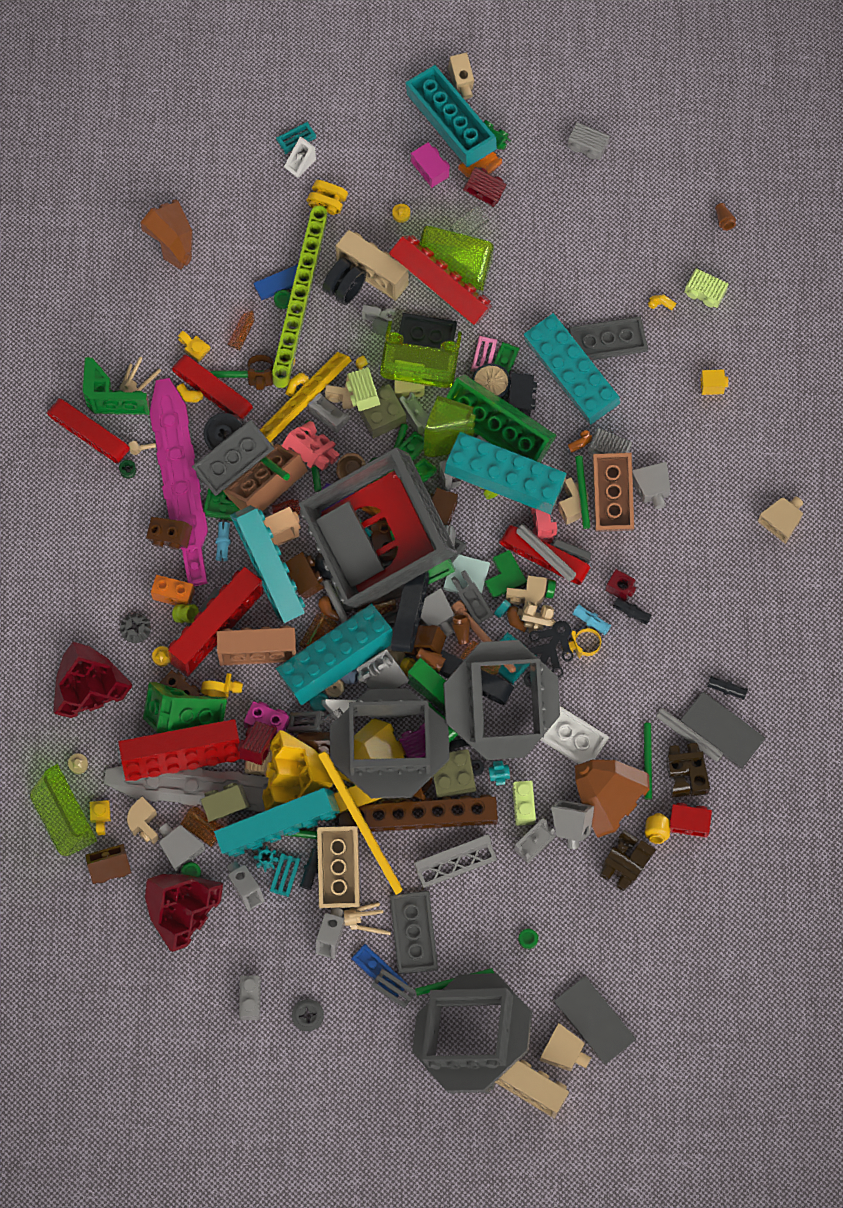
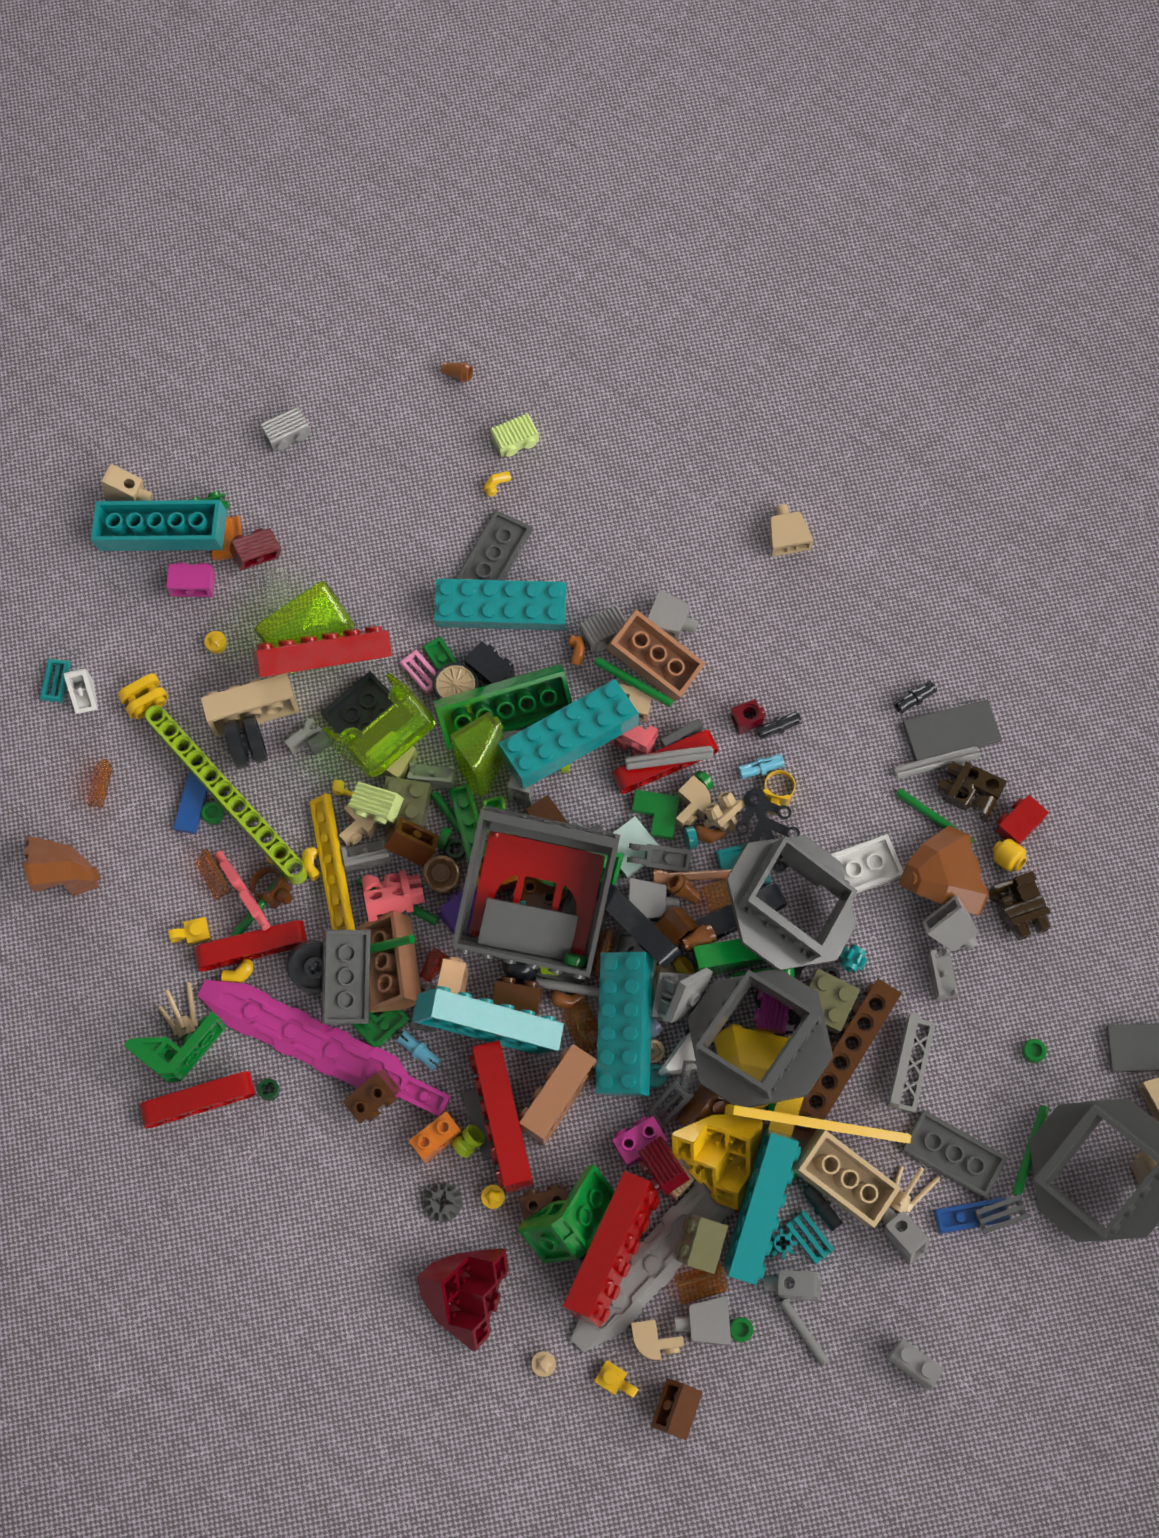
camera: 50 degrees left, 0 degrees up
(61, 813) = (586, 1419): clear neon green windscreen -> none
(136, 449) = (254, 1065): tan hand -> none
(180, 905) = (769, 1366): dark red brick -> none
(219, 689) = (575, 1162): yellow piece -> none
(219, 914) = (804, 1332): none -> light grey bar
(242, 359) = (244, 892): none -> coral piece
(248, 218) = (100, 784): none -> clear orange slope
(314, 1008) = (981, 1315): dark grey gear -> none
(352, 588) = (575, 960): none -> green tile
(356, 432) = (411, 841): none -> reddish brown brick
(377, 452) = (443, 838): none -> green tile
(384, 677) = (688, 995): none -> light grey plate
(524, 803) = (900, 957): yellowish green brick -> none
(713, 382) = (610, 495): yellow brick -> none

